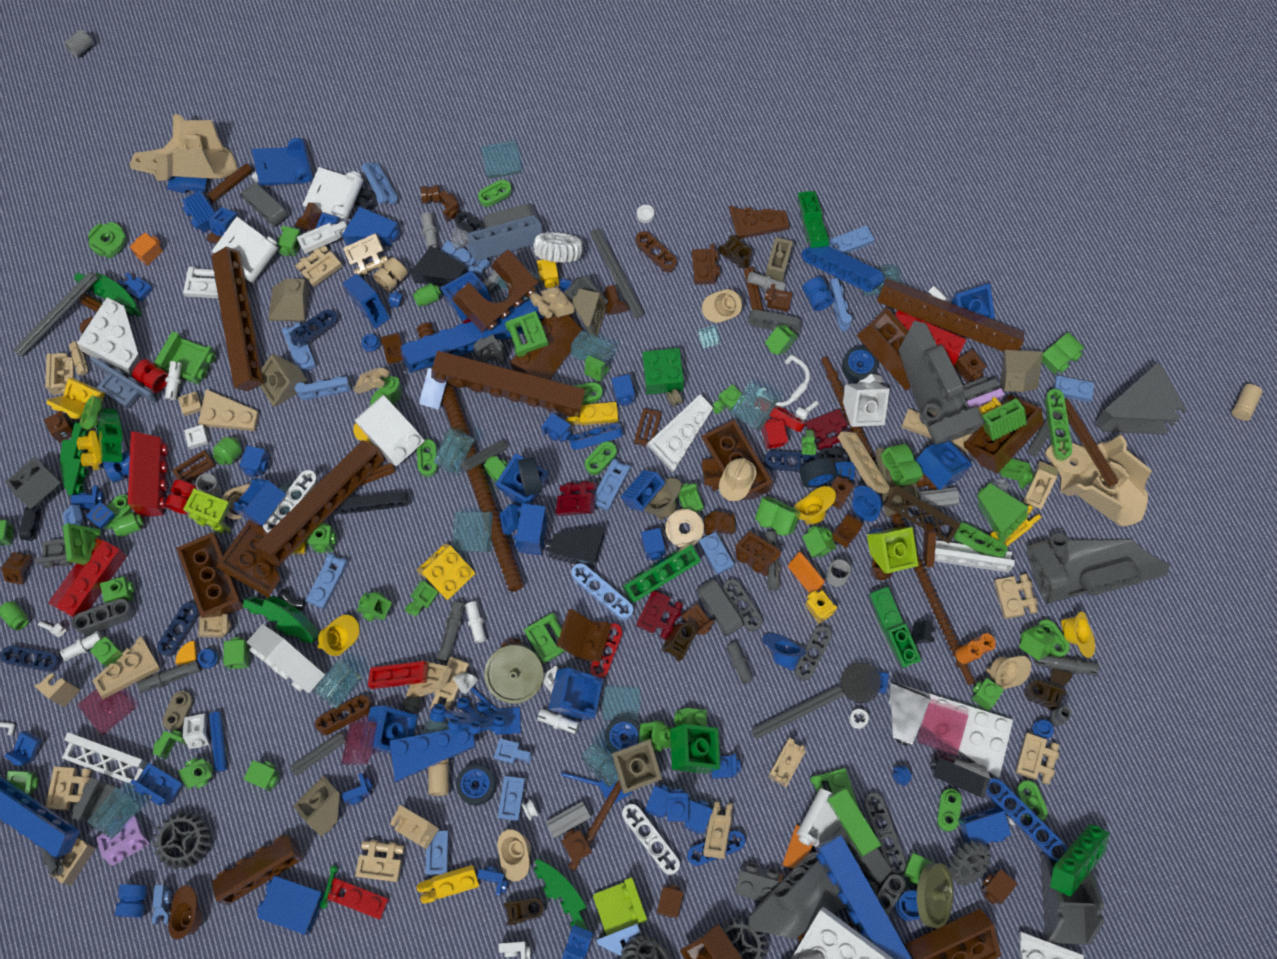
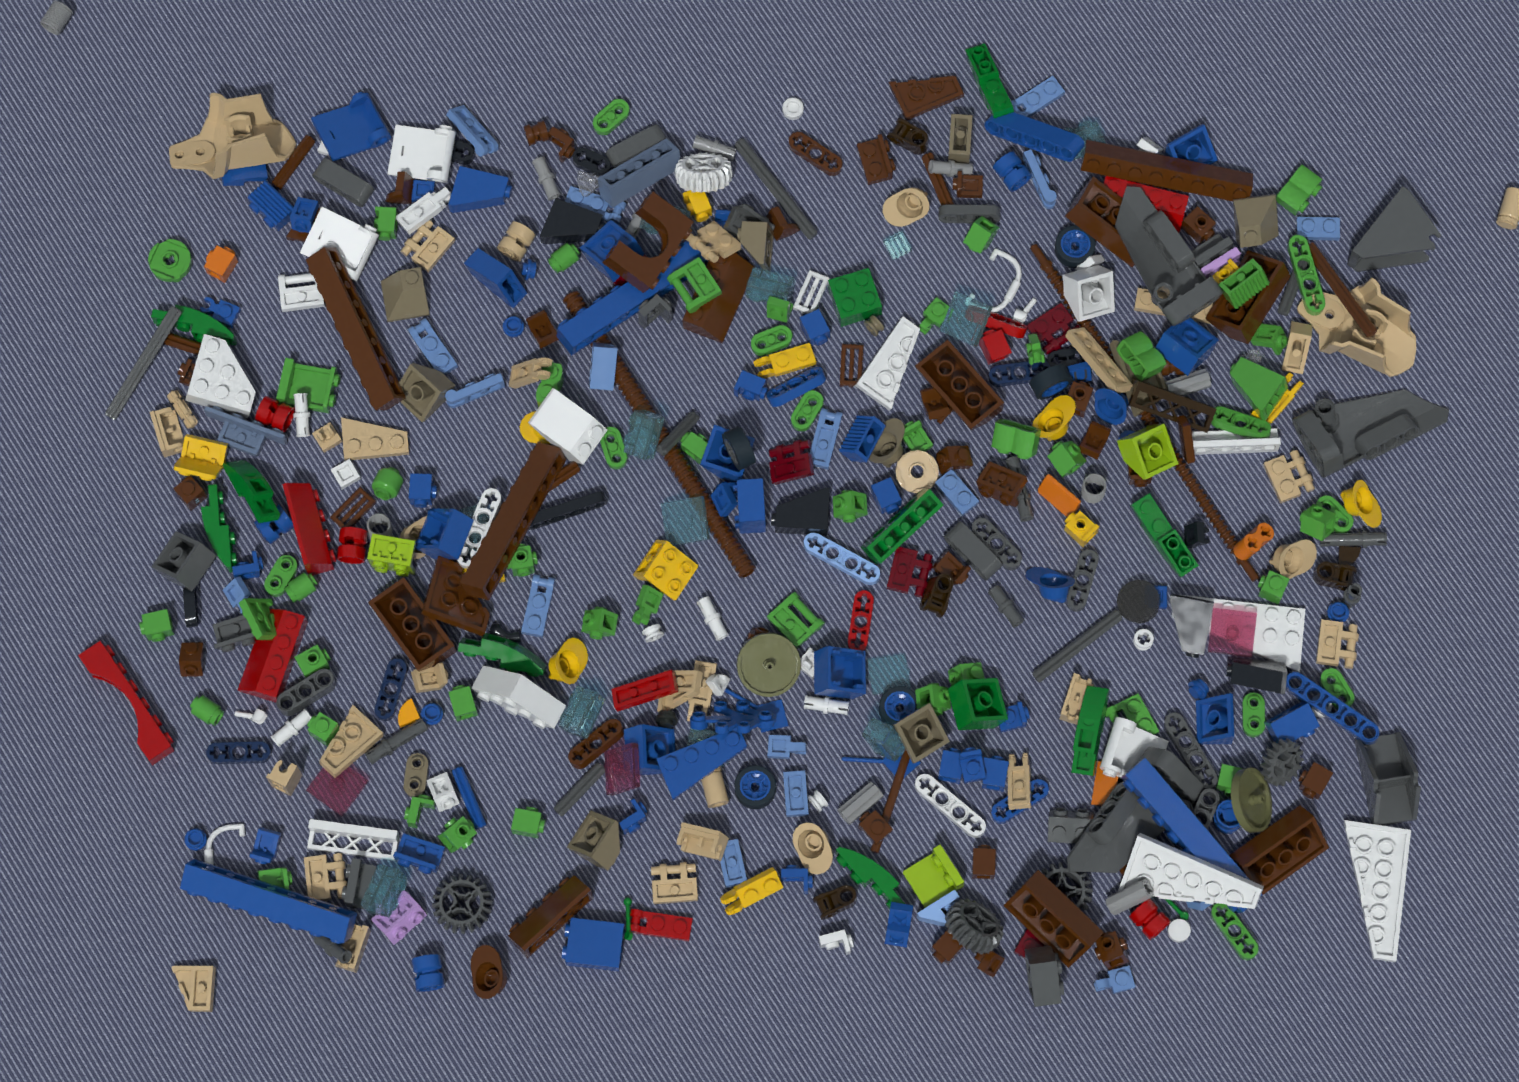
camera: 10 degrees left, 5 degrees up
(90, 412) = (227, 470): bright green plate -> none
(91, 443) = (240, 511): yellow hips -> none
(100, 515) = (270, 583): blue tile -> none
(161, 899) = (459, 964): medium blue plate -> none
(316, 320) = (445, 330): dark blue beam -> none
(364, 249) = (477, 218): tan plate -> none
(419, 624) = (652, 633): none -> white bush
(453, 623) = (688, 626): dark grey pin -> none
(501, 159) = (607, 72): clear light blue tile -> none
(507, 383) = (687, 347): reddish brown brick -> none
(573, 230) = (714, 147): none -> light grey pin
(583, 637) = (834, 611): reddish brown bracket -> none
(612, 370) = (804, 309): none -> white tile
(618, 546) = (849, 505): none -> bright green brick
(737, 479) = (964, 407): tan piece -> none
(793, 794) = (1089, 730): none -> green slope
(853, 822) = (1155, 743): bright green tile -> none
(913, 808) = (1215, 720): none -> blue slope
(1079, 859) = (1391, 735): green brick -> none

